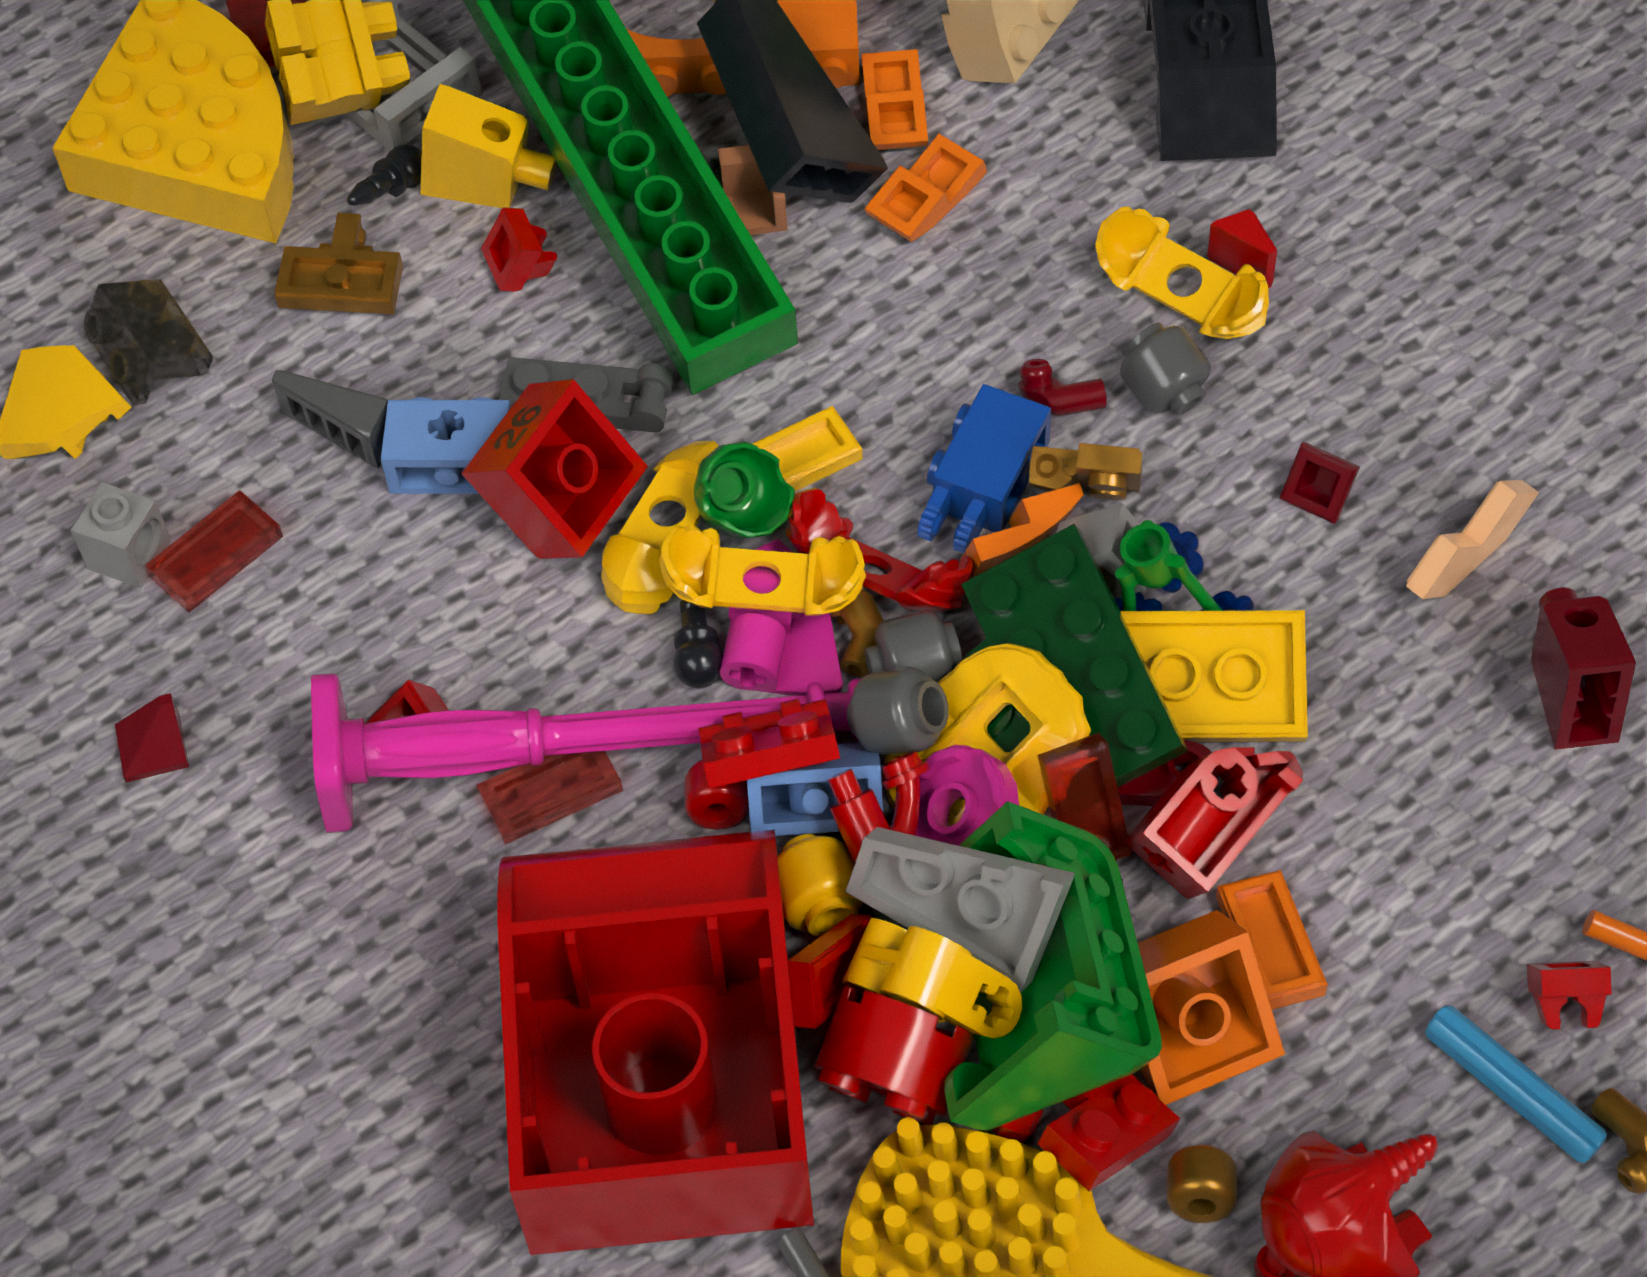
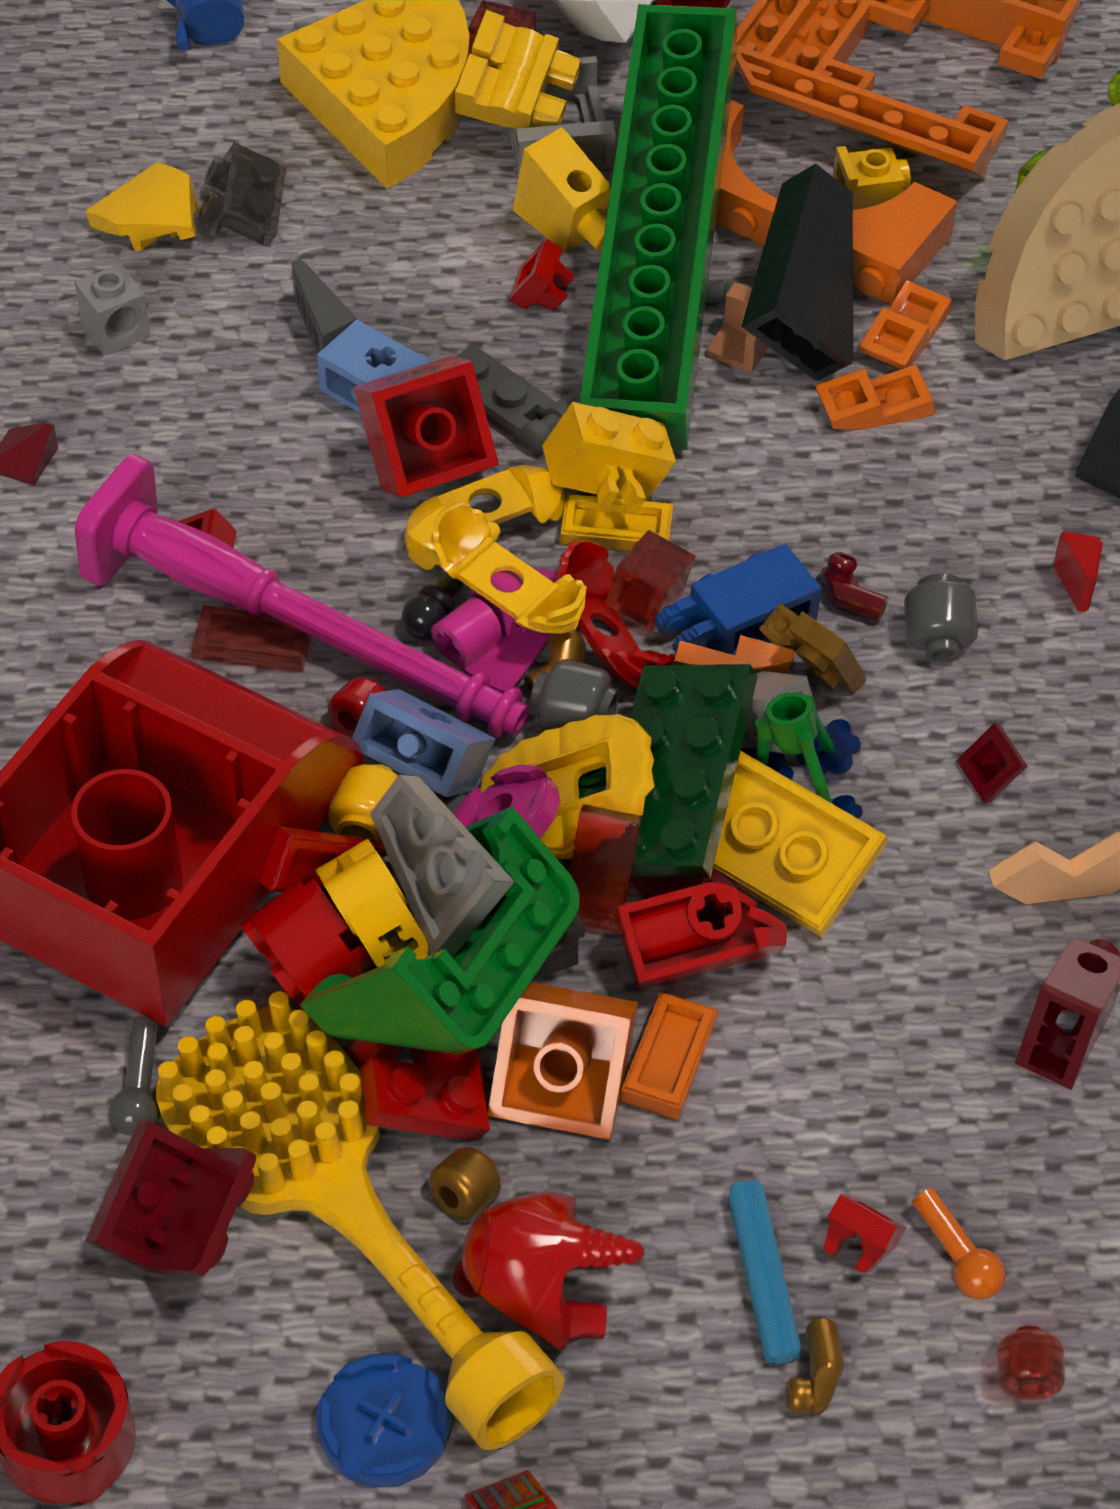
camera: 30 degrees right, 5 degrees down
(214, 551) = (169, 358): clear red tile -> none
(340, 274) = (407, 229): pearl gold hinge -> none
(390, 175) = (499, 184): black bar -> none
(742, 491) = (543, 512): green hair -> none
(751, 394) = (608, 454): none -> yellow brick
(767, 742) = (406, 684): red plate -> none
(859, 810) = (432, 769): red plant -> none
(883, 494) = (650, 578): none -> clear red brick
(897, 711) = (515, 719): dark grey head -> none
(1139, 256) = (994, 527): yellow piece -> none

